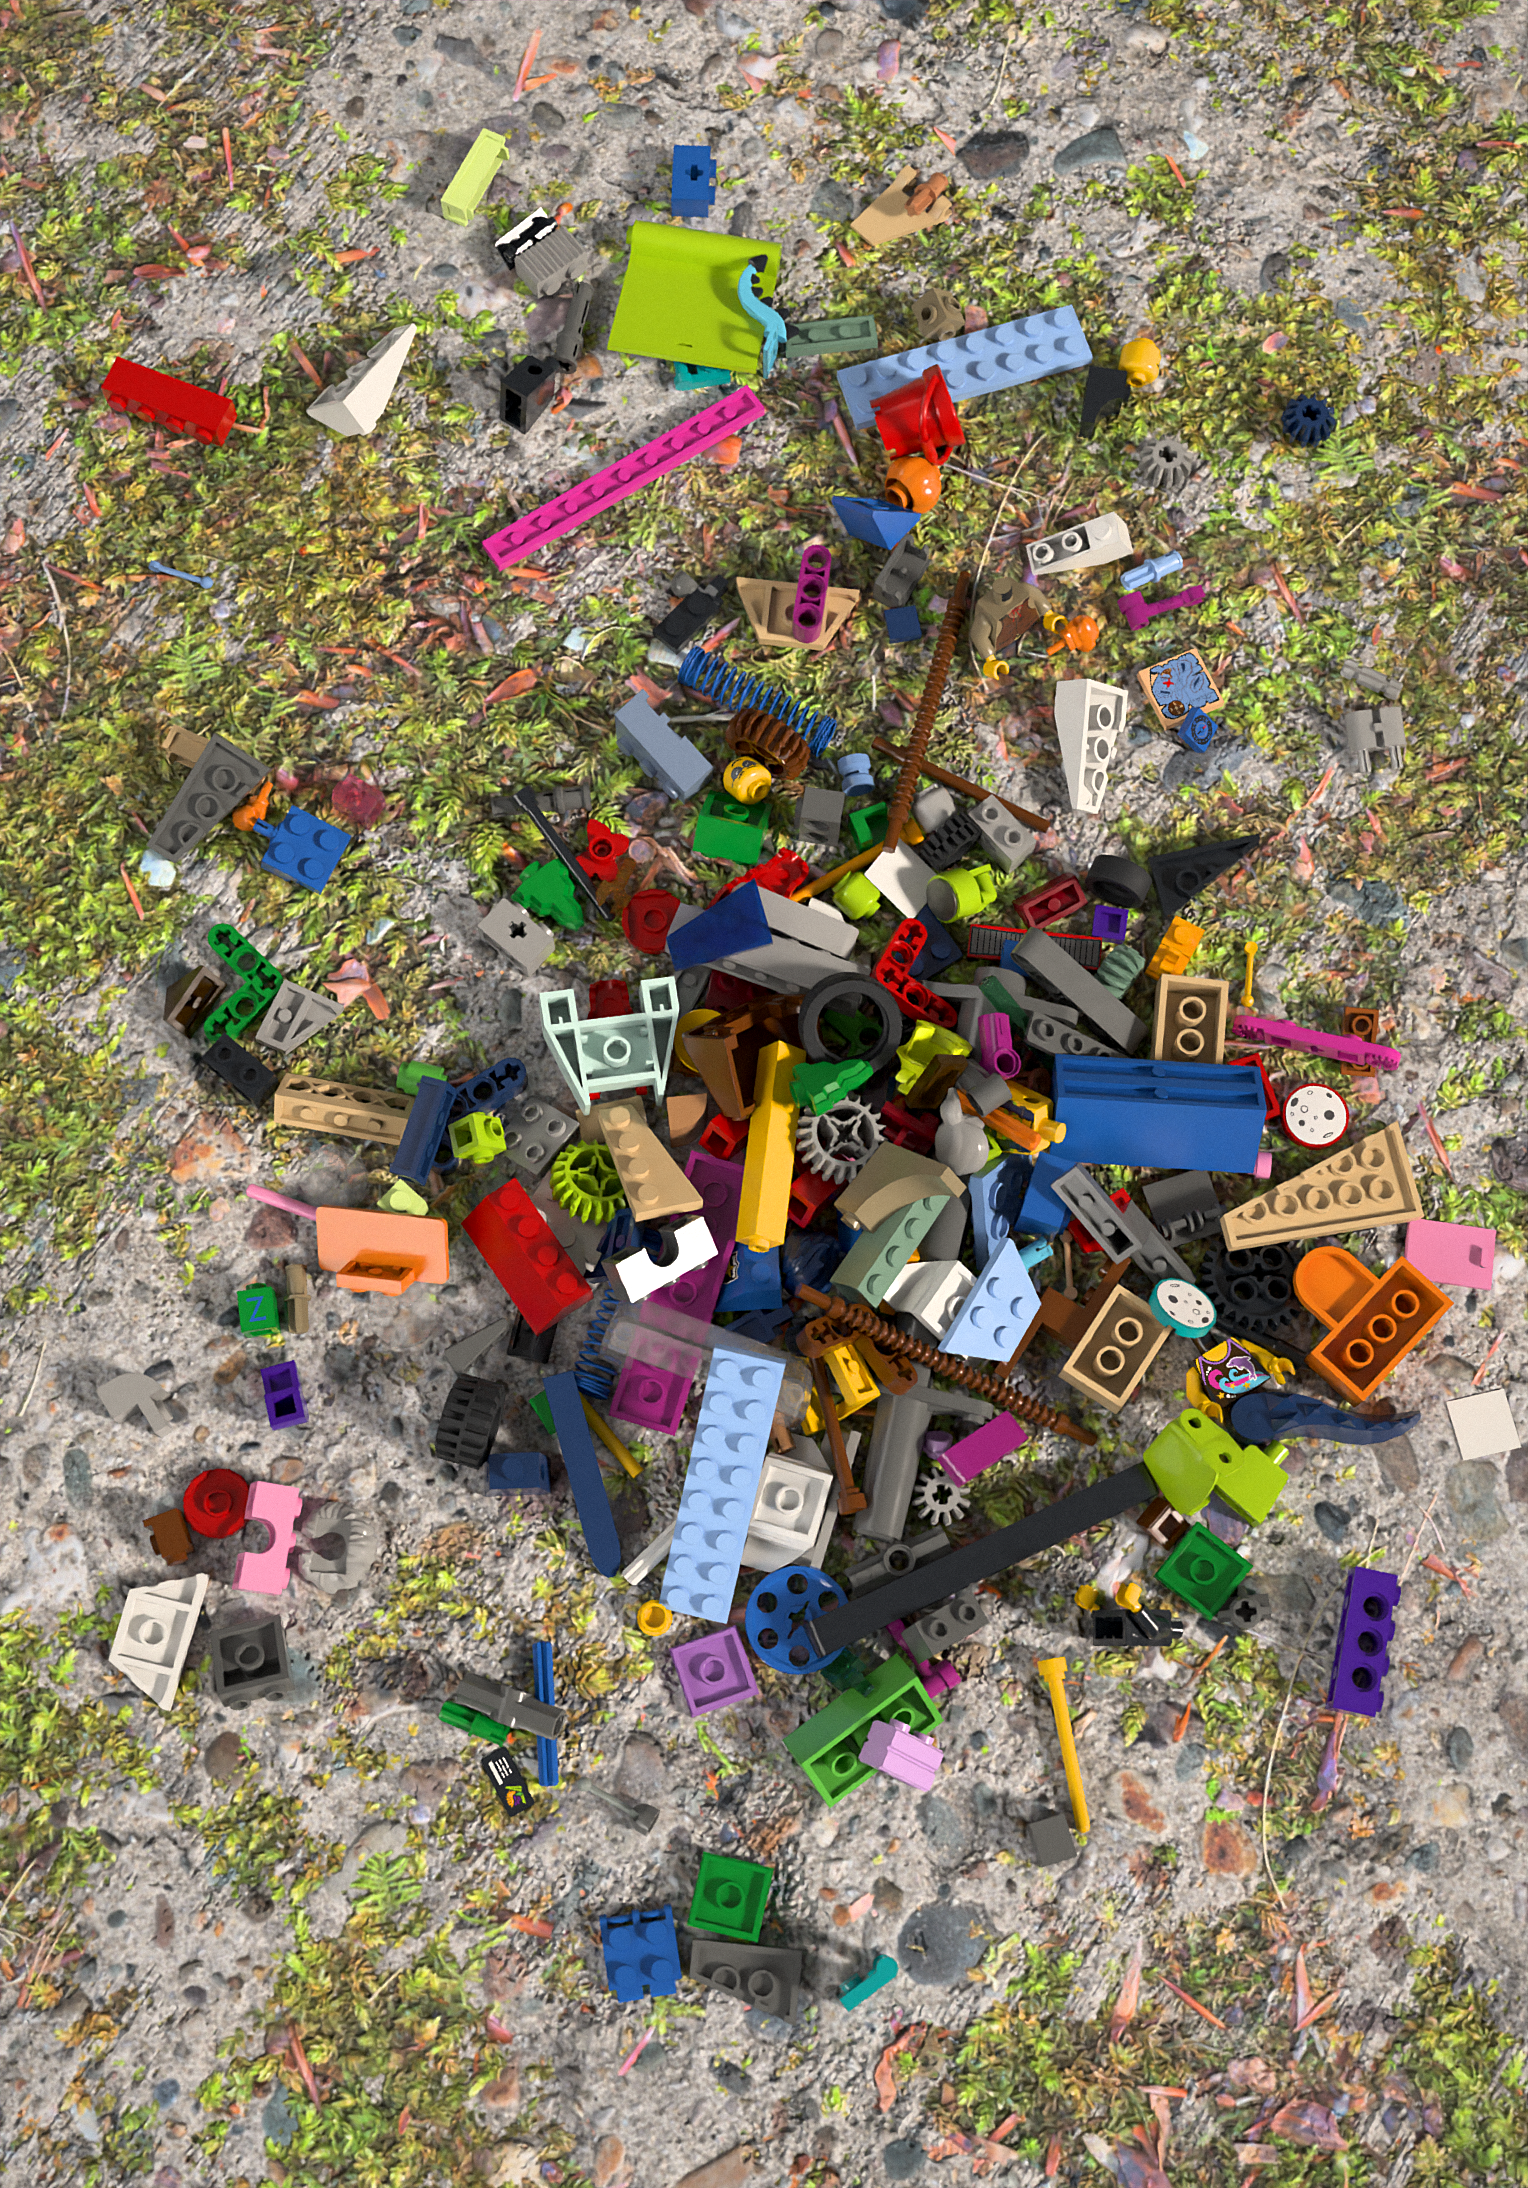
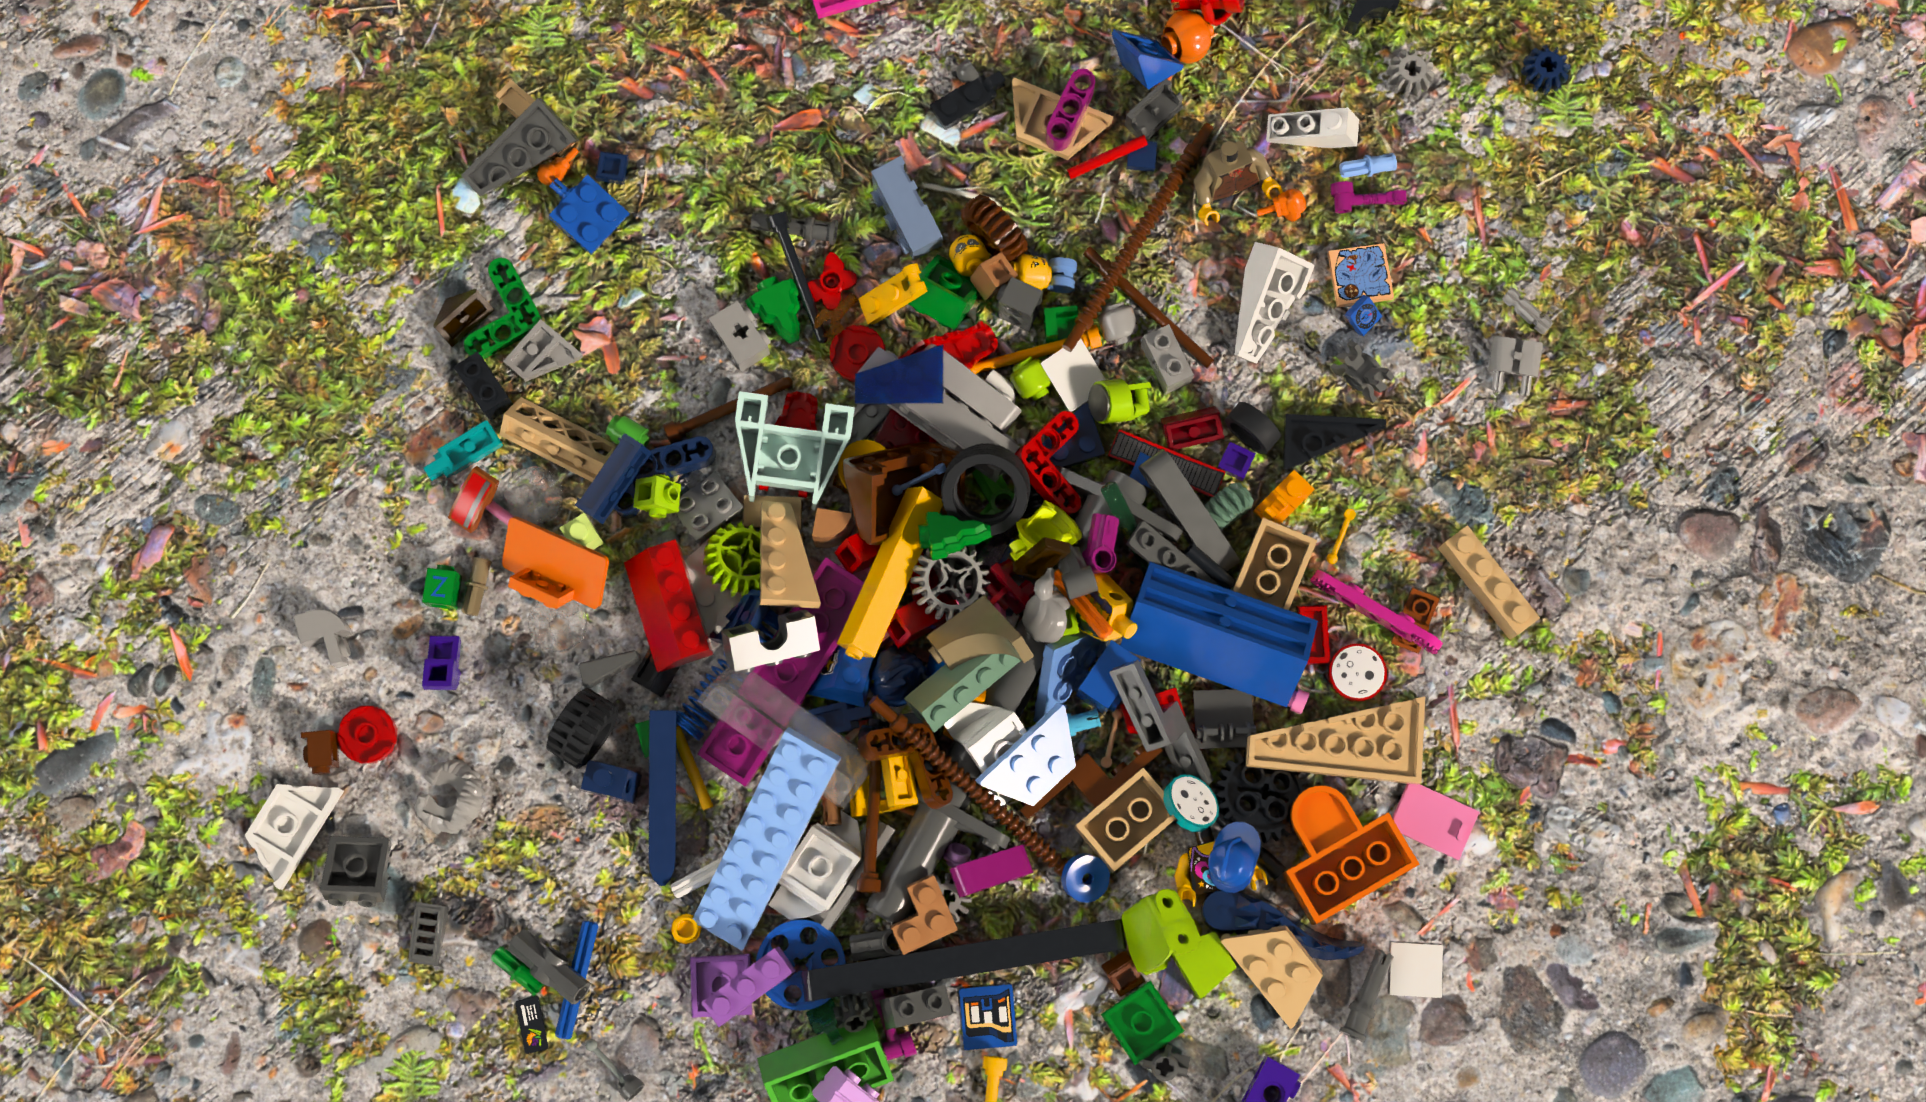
camera: 20 degrees right, 5 degrees up
(238, 1151) = (463, 451): none -> teal hinge
(266, 1200) = (473, 498): none -> slope
(274, 1508) = (388, 800): bright pink arch -> none
(315, 792) = (612, 167): none -> dark blue tile
(340, 1683) = (438, 935): none -> dark grey slope
(355, 789) = (649, 194): clear pink brick -> none
(476, 1061) = (678, 430): none -> reddish brown piece
(676, 844) = (892, 294): none -> yellow plate
(692, 669) = (947, 152): blue piece -> none
(748, 1660) = (748, 986): none -> medium lavender arch
(749, 1054) = (898, 489): none -> medium blue hinge
(781, 794) = (991, 275): none -> medium nougat panel
(821, 775) = (1033, 270): none -> yellow head
(866, 635) = (1107, 156): none -> red bar
(877, 1654) = (852, 1013): none -> pearl dark grey gear
(934, 1521) = (932, 916): none -> medium nougat plate
(951, 842) = (1122, 355): black tyre -> none
(1027, 1617) = (988, 1017): none -> sticker
(1102, 1427) = (1074, 872): none -> blue piece
(1118, 1042) = (1209, 566): none -> black piece
(1128, 1626) = (1062, 1050): black torso -> none
(1217, 789) = (1362, 371): none -> dark grey pin
(1249, 1354) = (1234, 857): none -> blue piece
(1335, 1464) = (1277, 968): none -> tan wing
(1426, 978) = (1488, 583): none -> tan brick
(1440, 1483) = (1362, 1008): none -> dark grey pin

